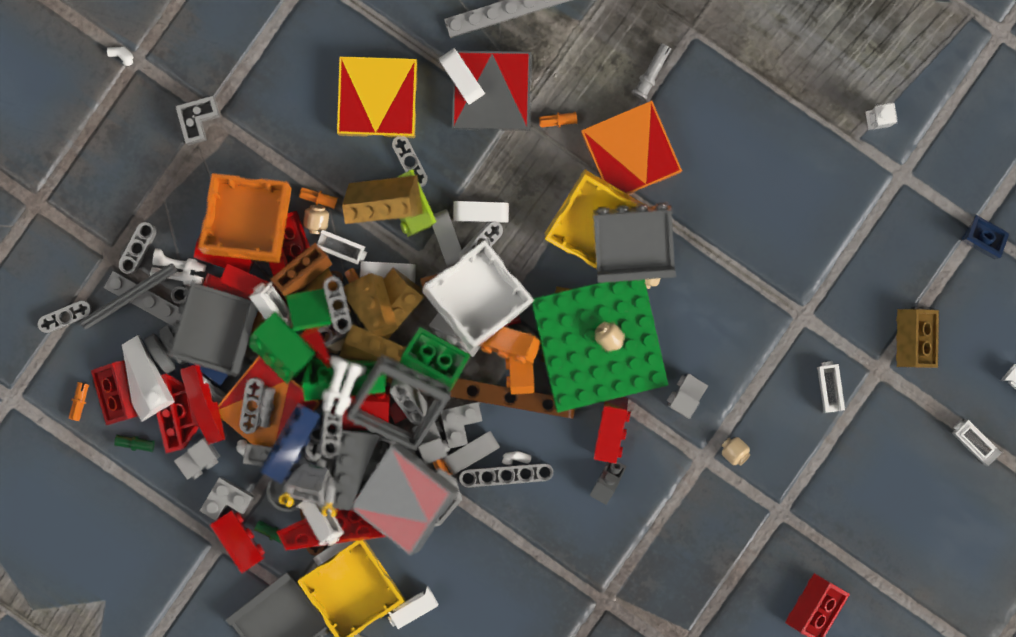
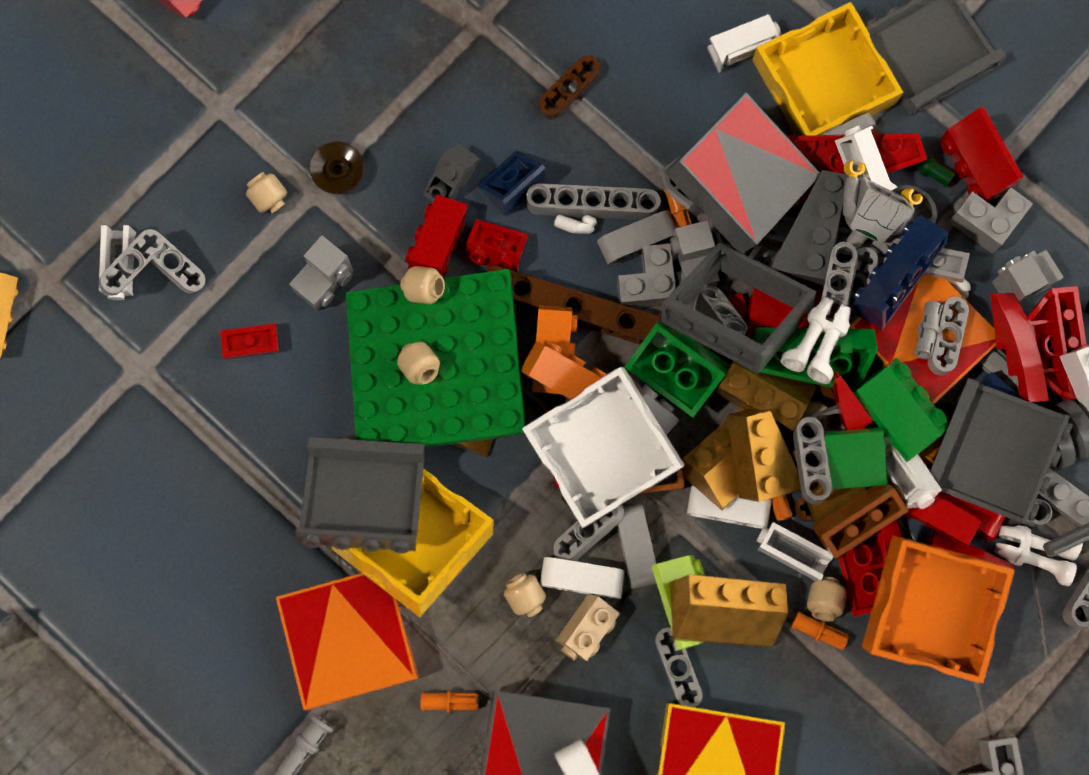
camera: 175 degrees left, 10 degrees down
(473, 178) = (587, 628): none -> tan brick
(518, 195) = (524, 595): none -> tan head
(529, 574) = (551, 95): none -> reddish brown beam
(565, 483) = (511, 180): none -> dark blue slope
(570, 434) = (495, 245): none -> red bracket
(614, 391) = (422, 285): none -> tan head
(699, 476) = (331, 157): none -> dark brown dish
(729, 344) = (249, 341): none -> red plate
(803, 393) = (156, 257): none -> light grey beam

